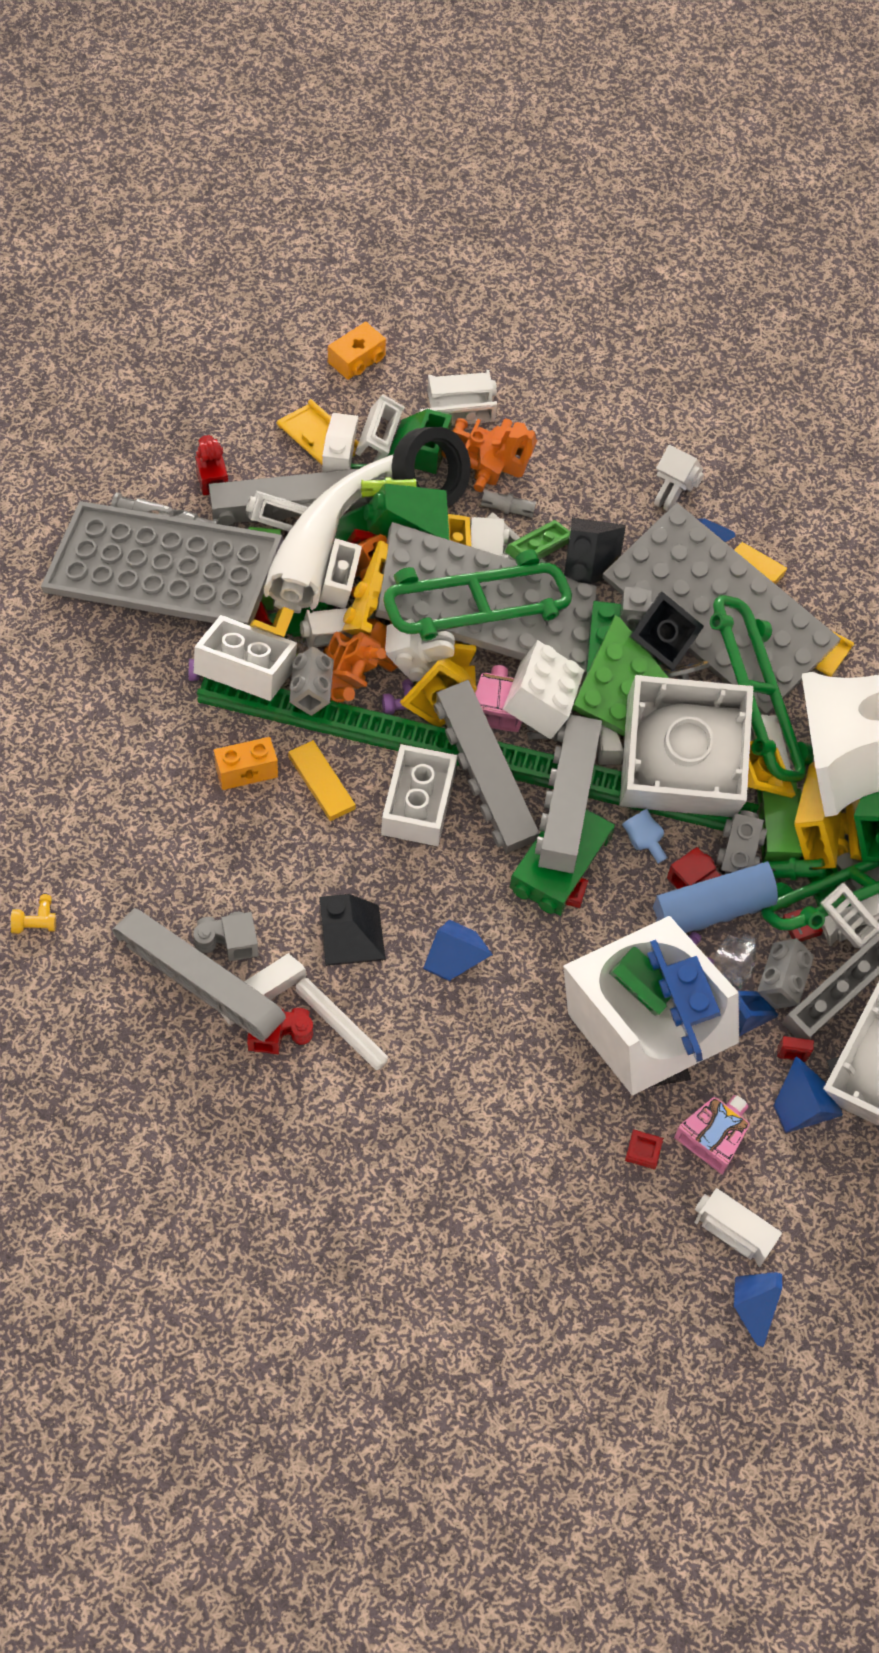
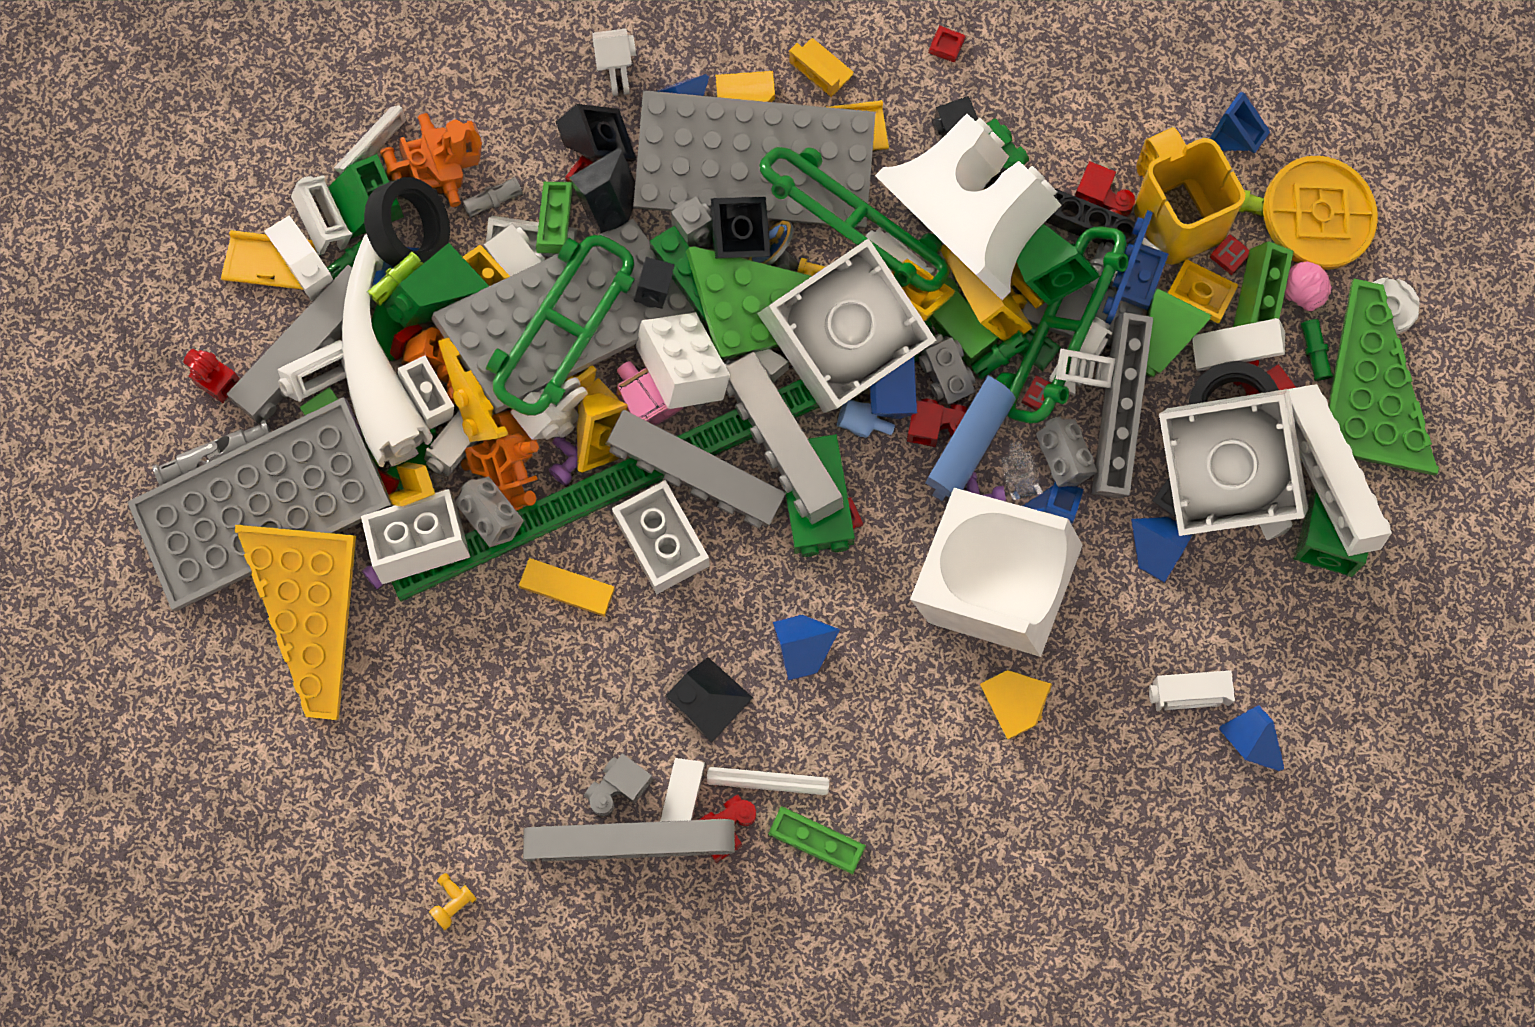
camera: 35 degrees left, 15 degrees up
(138, 635) = (307, 598): none -> yellow wing
(246, 763) = (496, 626): light orange brick -> none
(338, 1095) = (816, 840): none -> bright green tile
(357, 350) = (222, 135): light orange brick -> none
(460, 389) = (354, 115): white window -> none
(570, 626) = (654, 283): none -> black brick
(586, 1121) = (1016, 701): none -> yellow slope
(619, 505) = (595, 131): none -> black slope
(640, 979) = (979, 559): green panel -> none
(644, 1149) = (1075, 685): red tile -> none
(683, 826) = (895, 393): none -> blue slope
(689, 994) = (1028, 546): blue bracket -> none
(715, 1131) = (1118, 627): torso -> none
(791, 1047) = (1120, 509): red tile -> none
(826, 589) = (820, 66): none -> yellow panel

